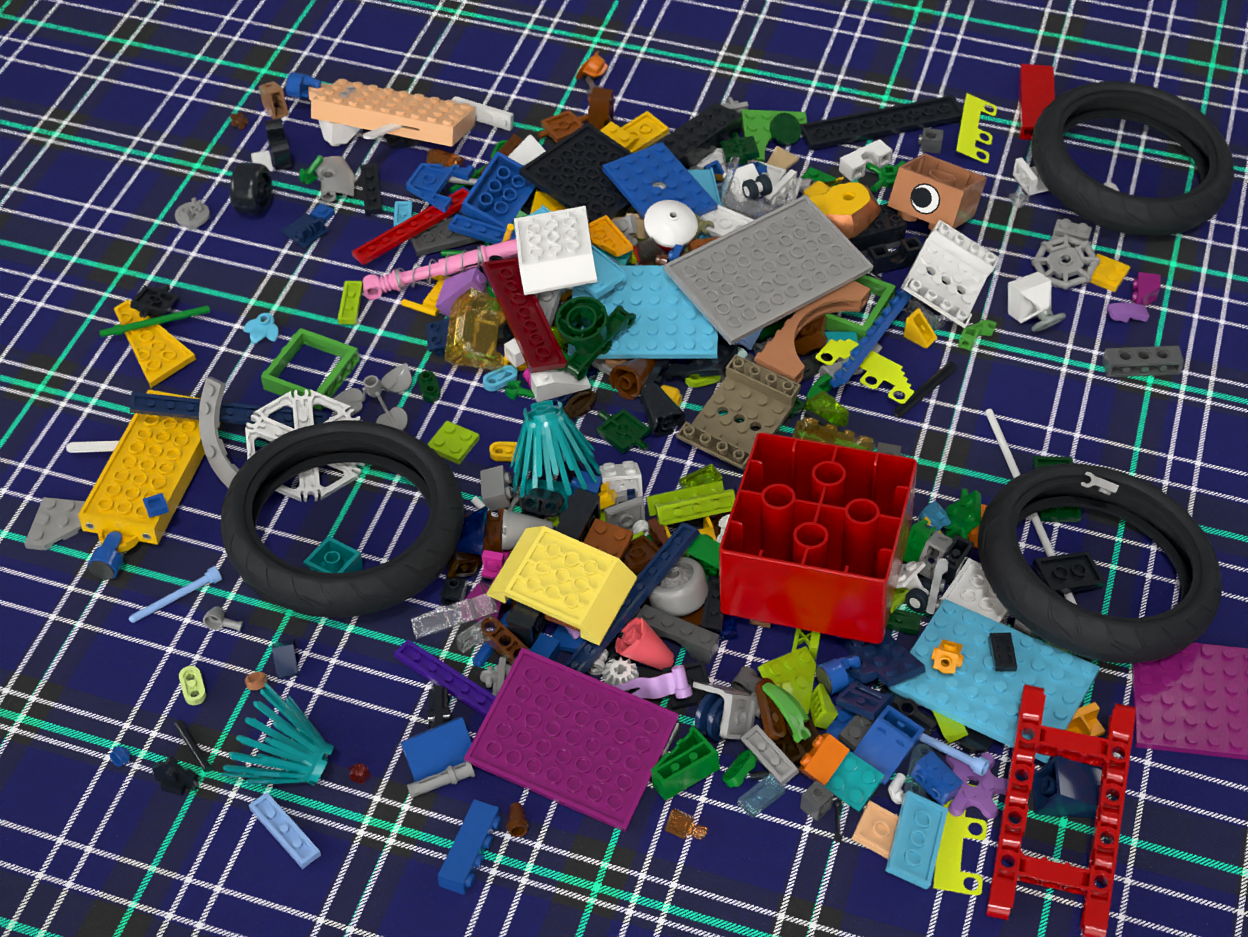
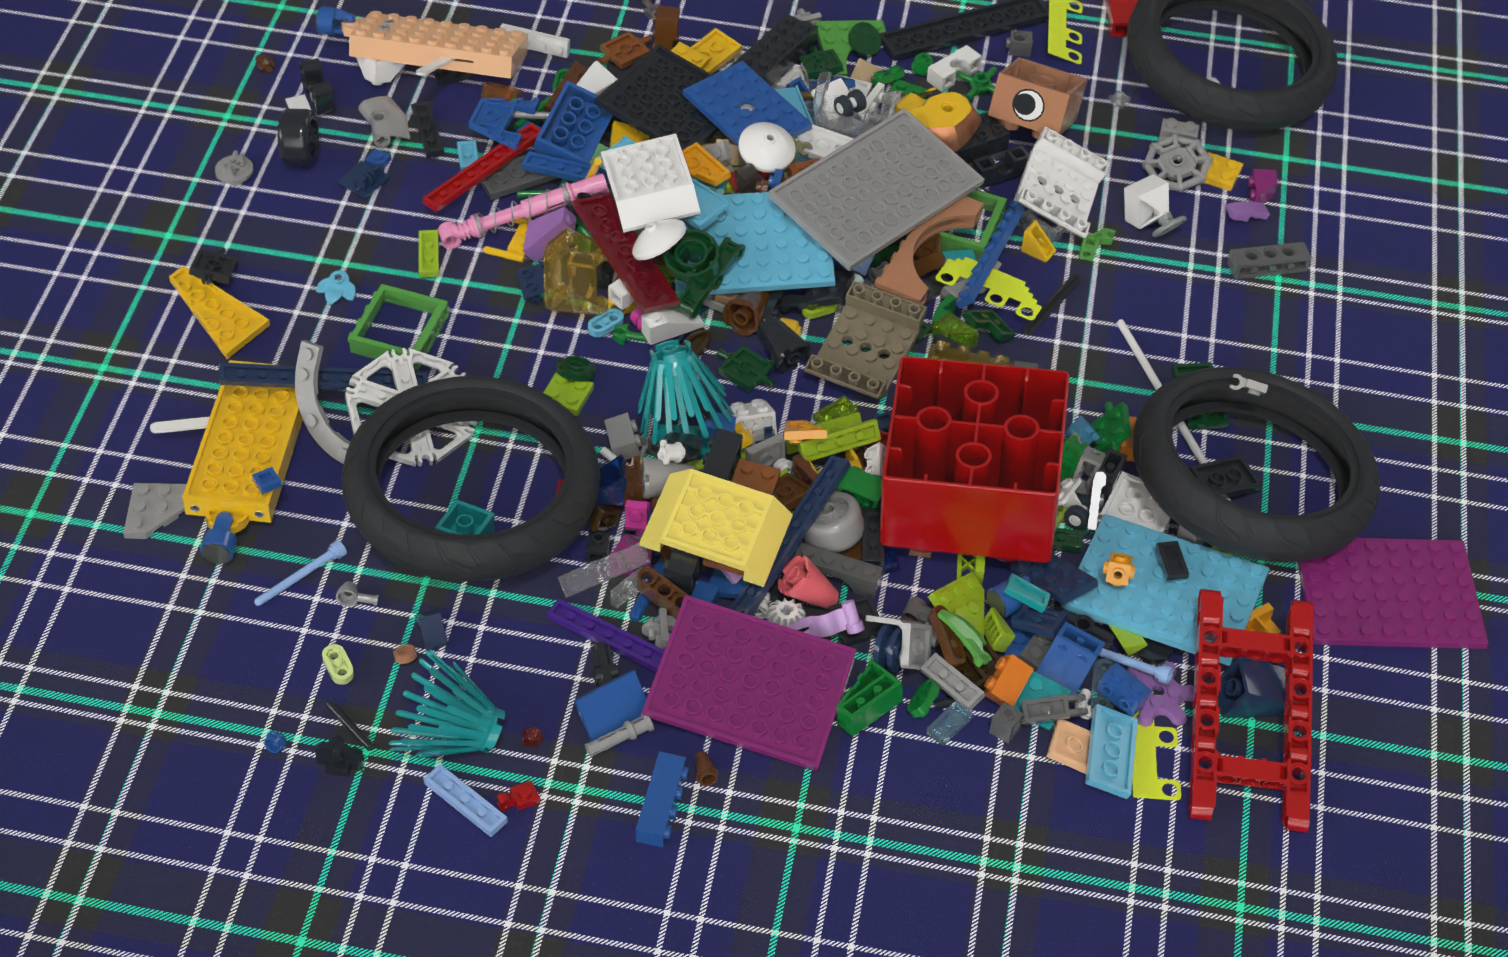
camera: 10 degrees left, 0 degrees up
(118, 329) = (181, 298): green bar -> none
(272, 95) = (301, 38): medium nougat torso -> none
(308, 175) = (355, 119): green bar -> none
(339, 831) = (521, 796): none -> red plate
(396, 380) = (493, 332): light grey plant -> none
(429, 386) = (530, 337): dark green plate -> none
(464, 419) = (575, 368): none -> dark green tile
(502, 451) = (625, 398): yellow plate -> none
(530, 507) = (671, 452): none -> white brick
(553, 302) = (658, 238): none -> white dish
(661, 495) = (802, 429): none -> light orange wing
(682, 824) = (874, 758): clear orange plate -> none
(807, 162) = (895, 72): none -> green plate
(835, 153) = (921, 63): none -> green cone
(837, 836) = (1031, 756): black hinge -> none
(853, 673) = (1027, 593): none -> teal tile
(862, 400) = (989, 319): none -> dark green plate
(862, 791) = (1052, 708): none -> dark grey hinge
(1028, 177) = (1127, 77): white bracket -> none

